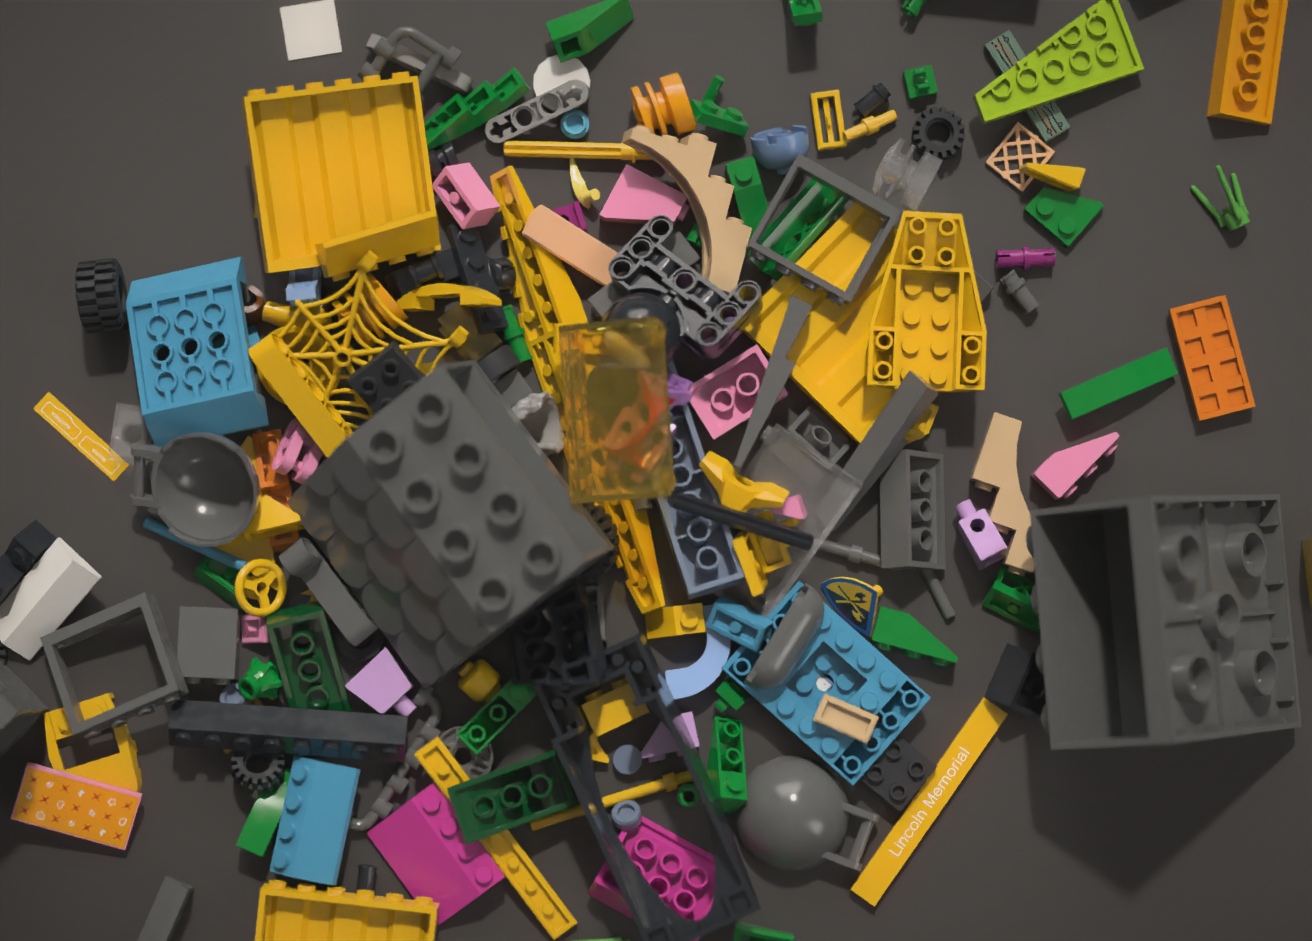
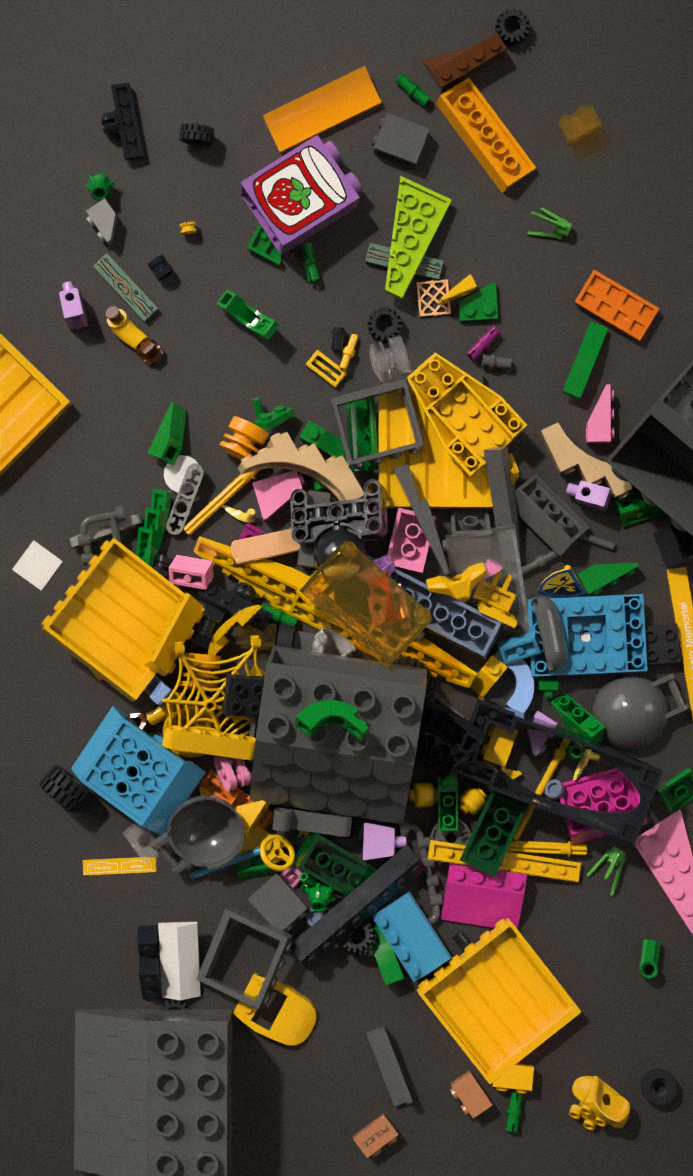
camera: 40 degrees left, 0 degrees up
(76, 806) = (291, 1041): light orange tile -> none
(264, 650) = (307, 881): none -> green arm
(454, 486) = (331, 713): none -> green arch
(525, 739) = (472, 800): none -> yellow head
(557, 870) = (548, 848): none -> yellow axle
(574, 124) = (208, 487): medium azure plate -> none
(627, 759) = (529, 763): sand blue tile -> none
(687, 816) = (584, 761): none -> light yellow bar
(743, 521) = (475, 597): black axle -> none
(779, 148) = (317, 404): medium blue cylinder -> none
(845, 718) = (613, 642): tan tile -> none
(920, 82) = (352, 308): green tile -> none

